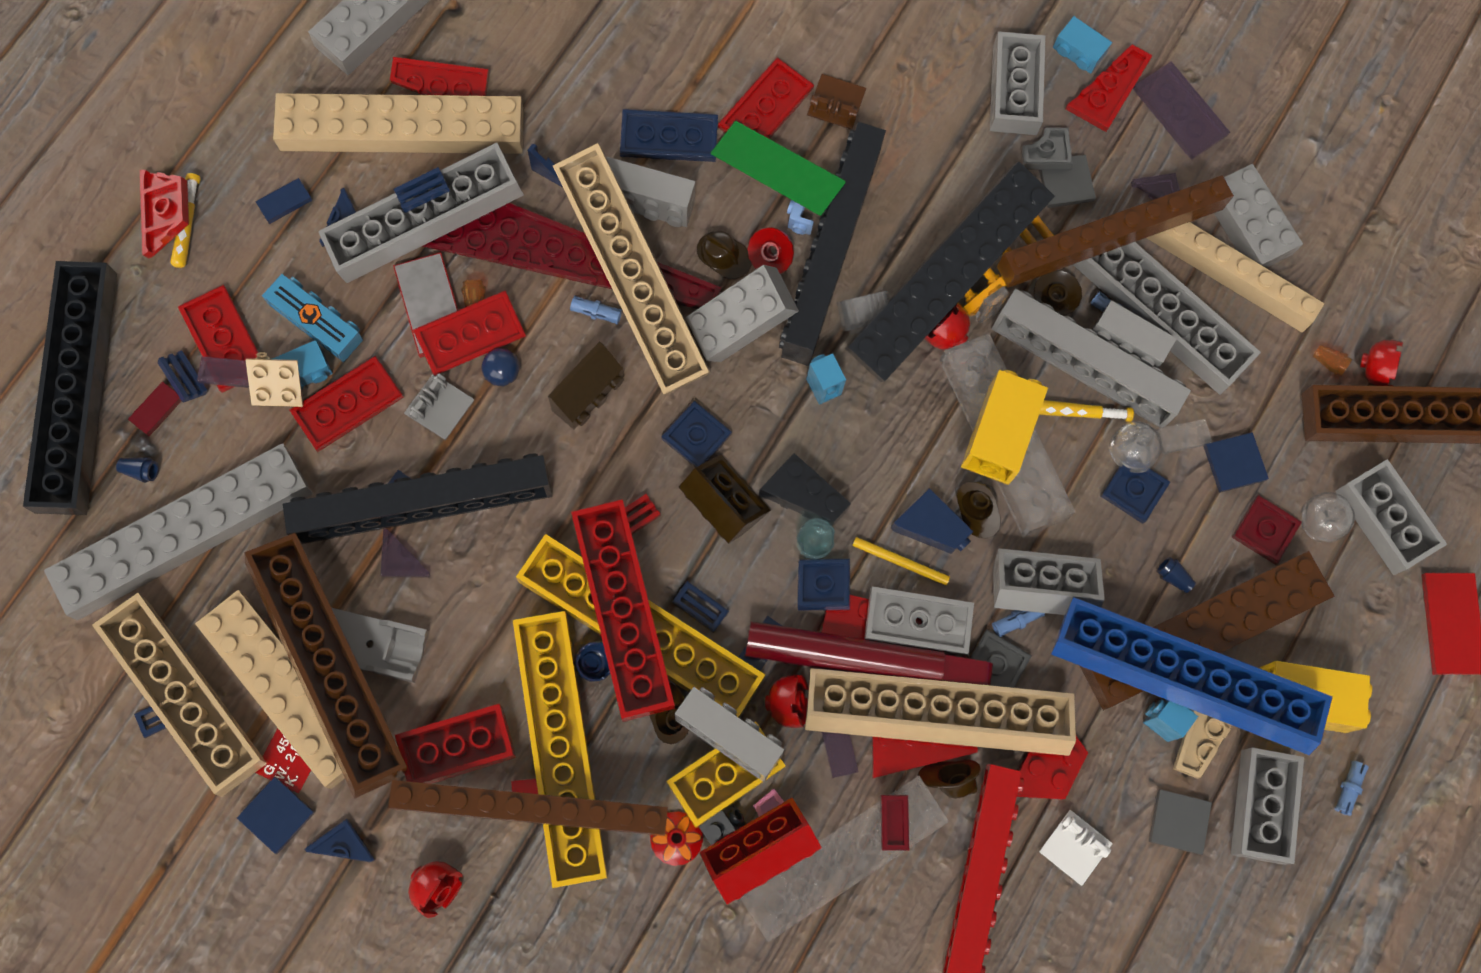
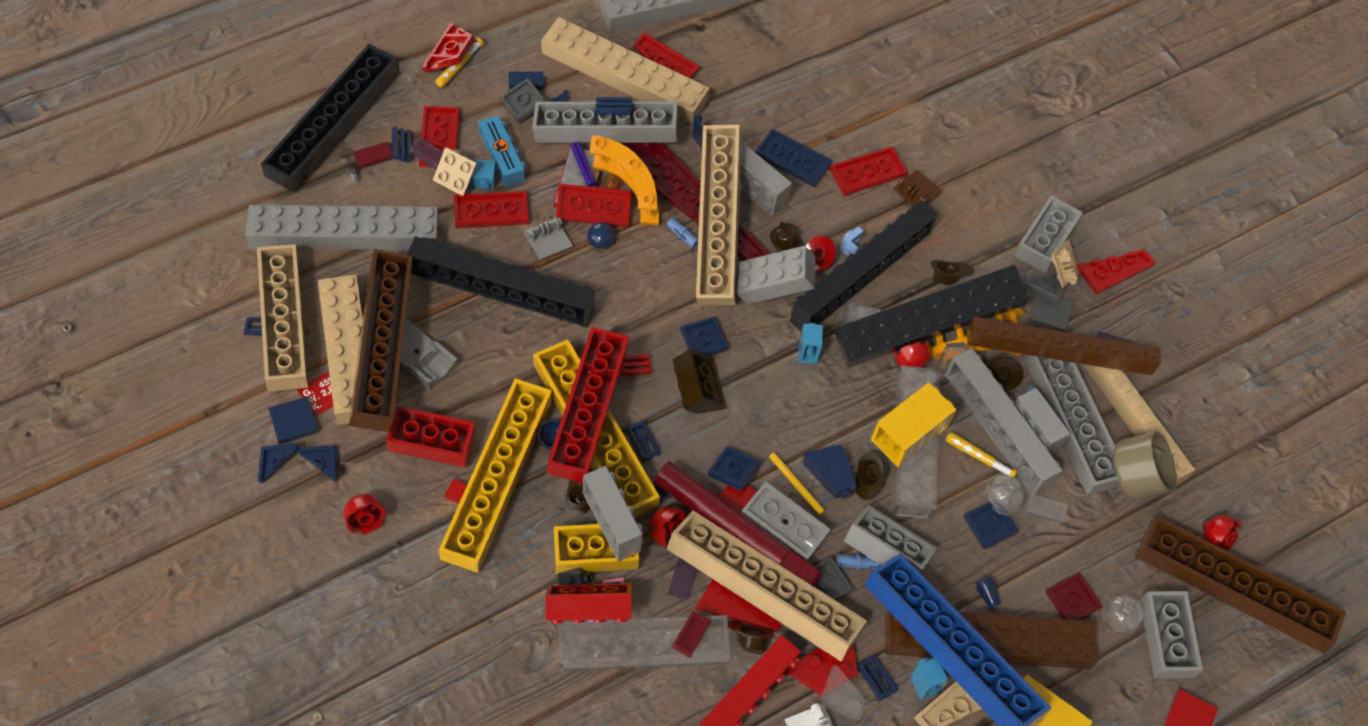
camera: 30 degrees right, 15 degrees down
(138, 468) = (343, 182): dark blue cone -> none
(283, 878) = (273, 458): none -> dark blue tile
(297, 233) = (521, 100): none -> dark grey tile
(398, 561) = (465, 314): tile -> none
(425, 283) = (583, 164): none -> dark purple axle
(482, 262) = (622, 162): none -> light orange fence
(528, 808) = (455, 491): reddish brown brick -> none
(586, 386) = (648, 270): dark brown slope -> none
(684, 851) = (535, 582): dish -> none
(778, 168) = (853, 204): green sticker -> none
(804, 491) = (755, 405): black wedge -> none
(815, 539) = (745, 437): clear light blue hair -> none
(930, 194) = (950, 272): none -> dark brown piece
(1060, 116) = (1065, 264): none -> tan hinge
(1082, 45) = (1108, 234): dark azure brick -> none
(1086, 790) = (842, 695): none -> clear wing
(1121, 763) = (870, 682): none -> dark blue tile
(1181, 110) = (1159, 307): clear purple tile -> none
(1236, 462) = (1074, 544): dark blue tile -> none
(1256, 220) = (1174, 396): light grey brick -> none
(1274, 332) = (1145, 466): none -> dark tan piece
(1332, 359) = (1184, 513): clear orange cone -> none

